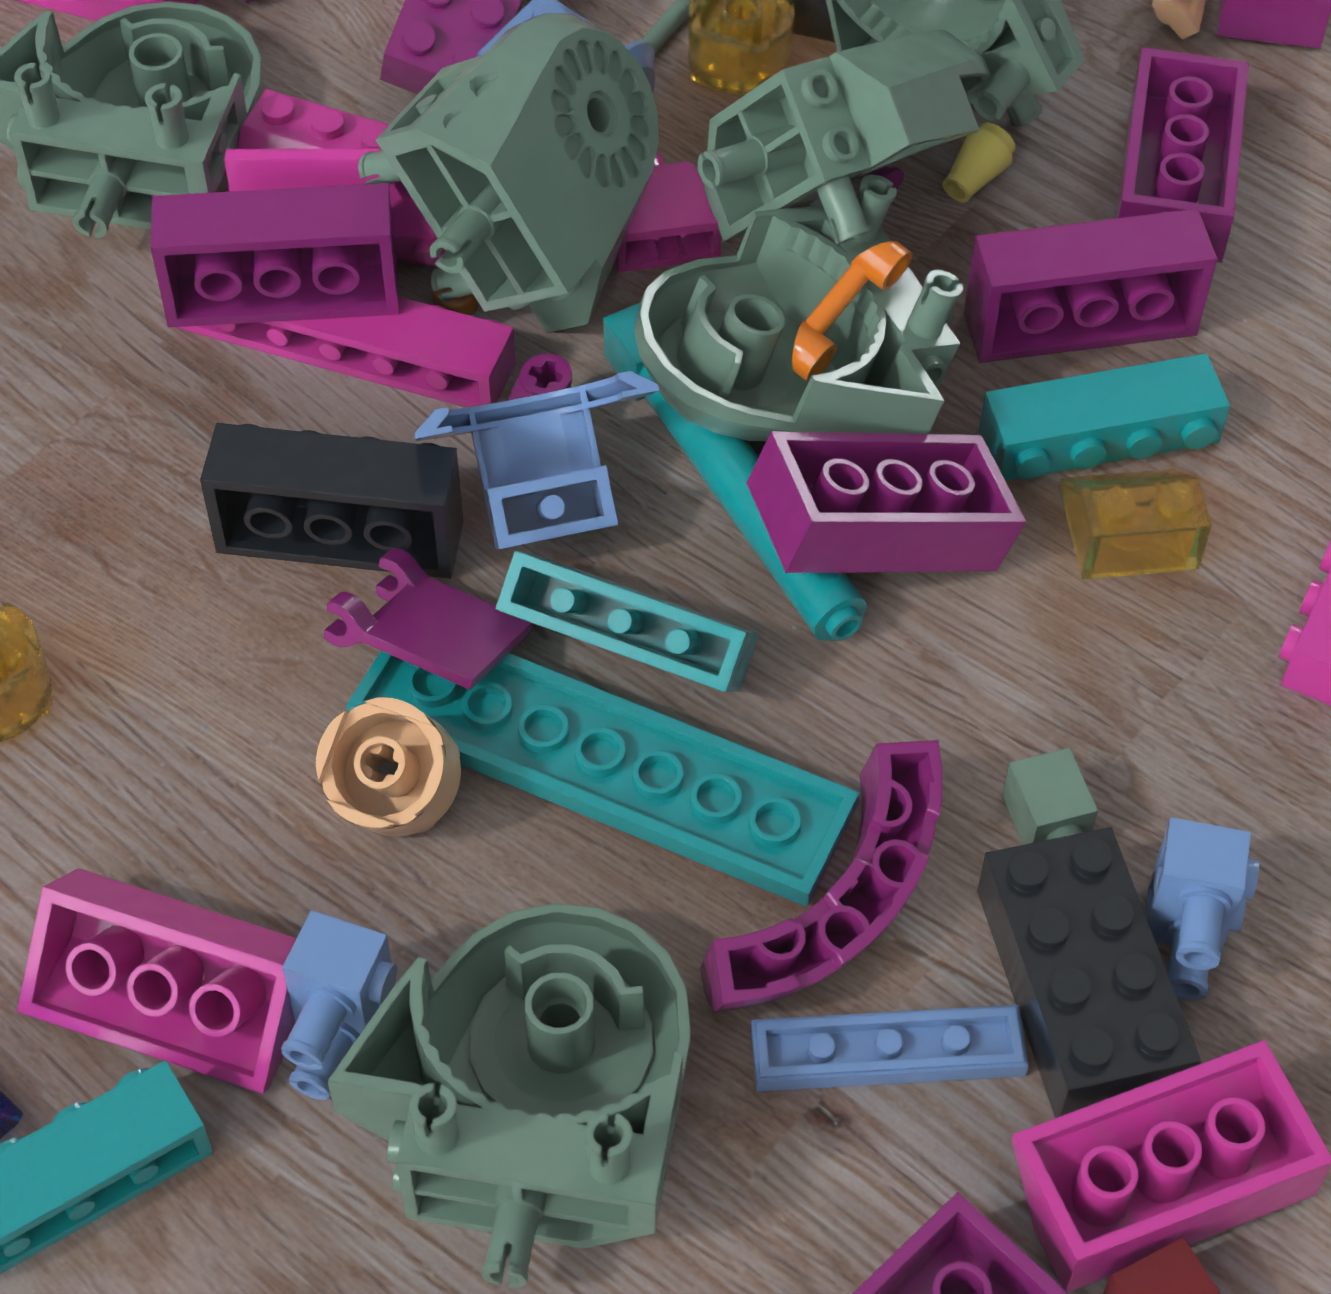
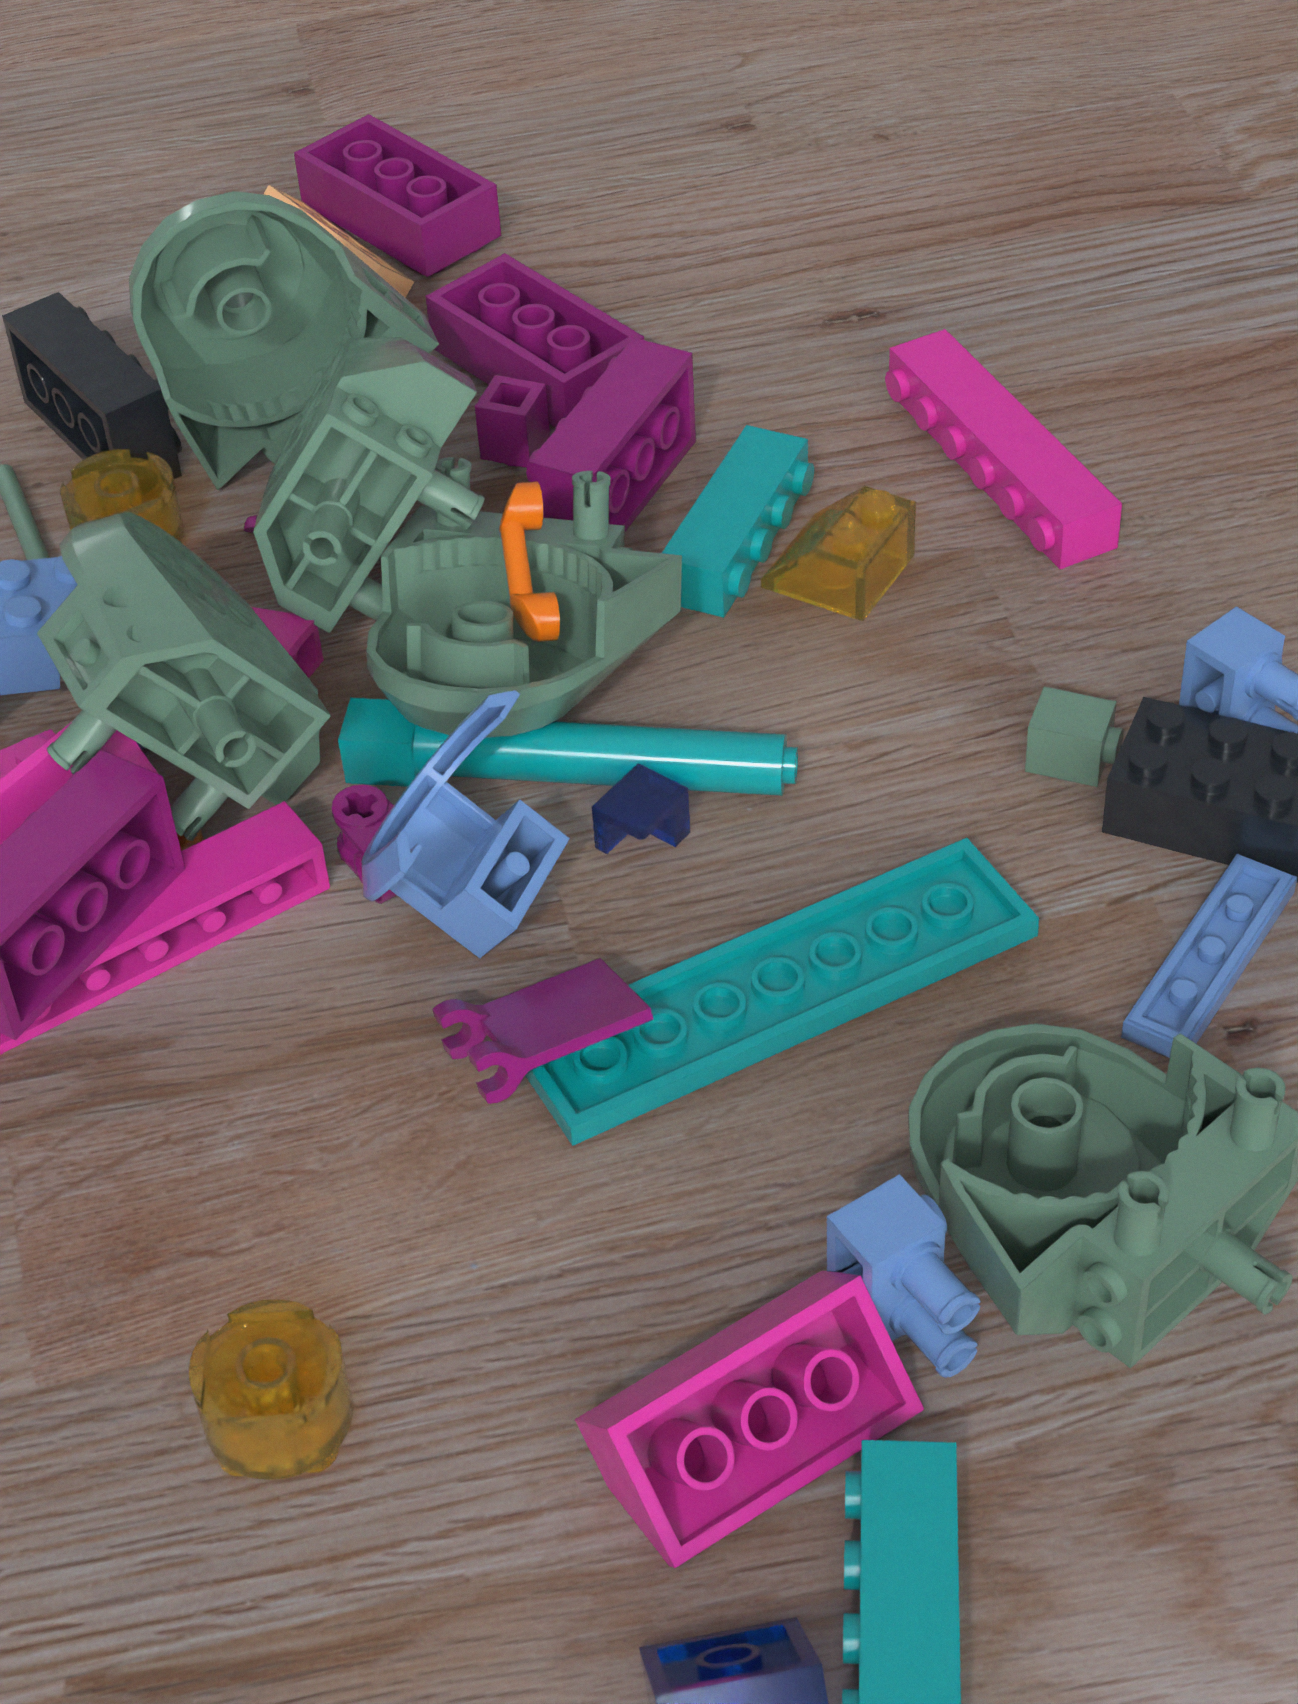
camera: 50 degrees left, 10 degrees down
(331, 498) = (344, 1016): black brick -> none
(388, 731) = (684, 1080): light nougat brick -> none
(627, 621) = (669, 887): teal brick -> none
(703, 549) = (641, 806): none -> clear blue panel
(884, 502) = (717, 663): magenta brick -> none
(892, 849) = (1062, 878): magenta brick -> none
(1067, 191) = (512, 420): none -> magenta brick

